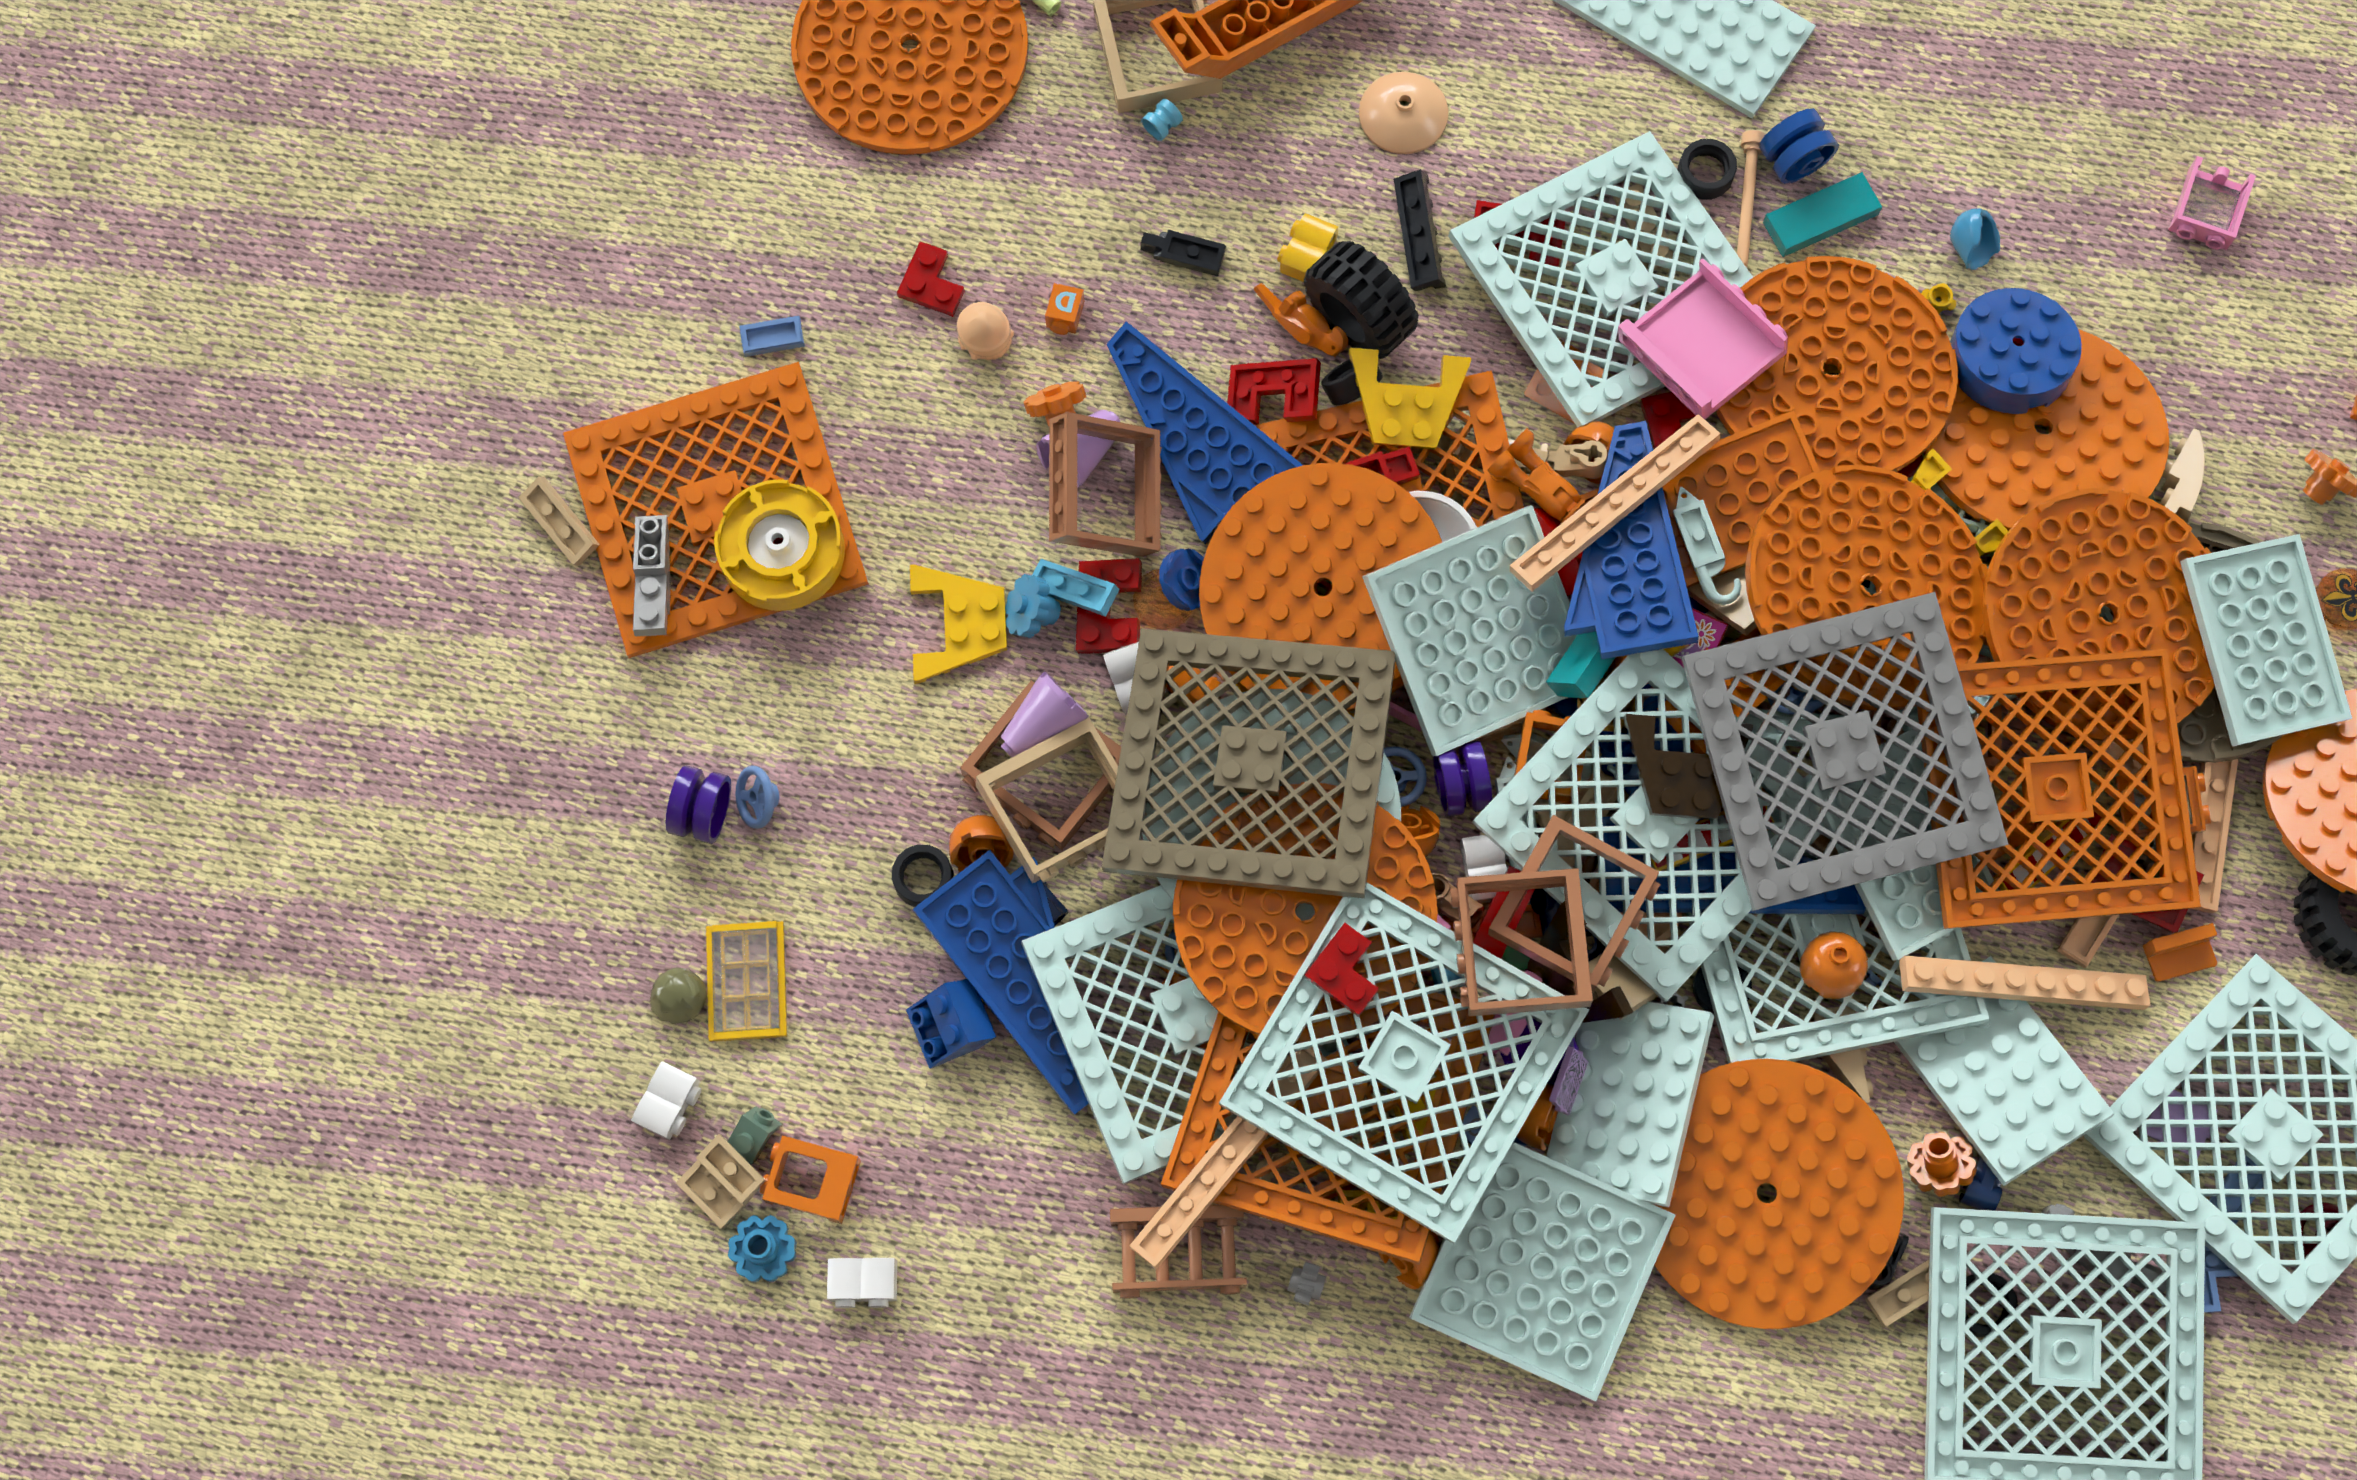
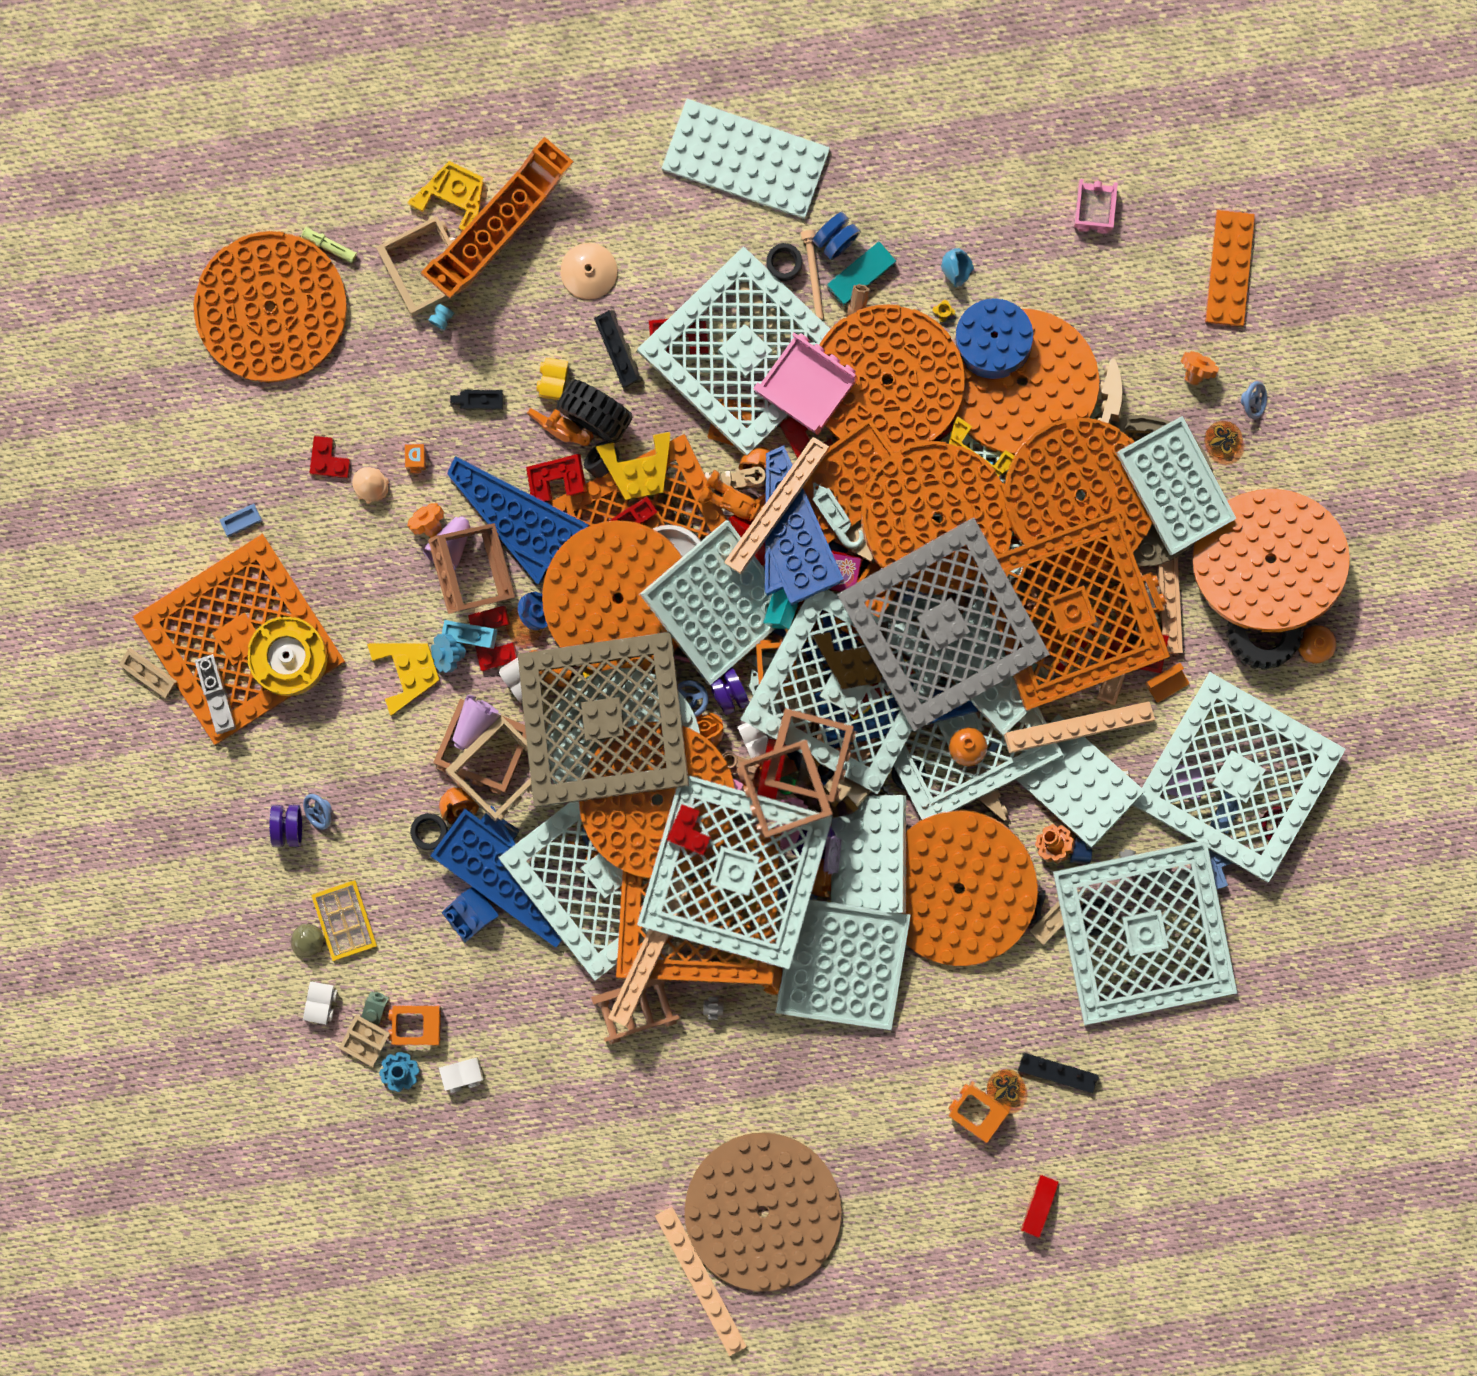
camera: 15 degrees left, 10 degrees up
(1812, 242) = (858, 298): none -> medium nougat piece

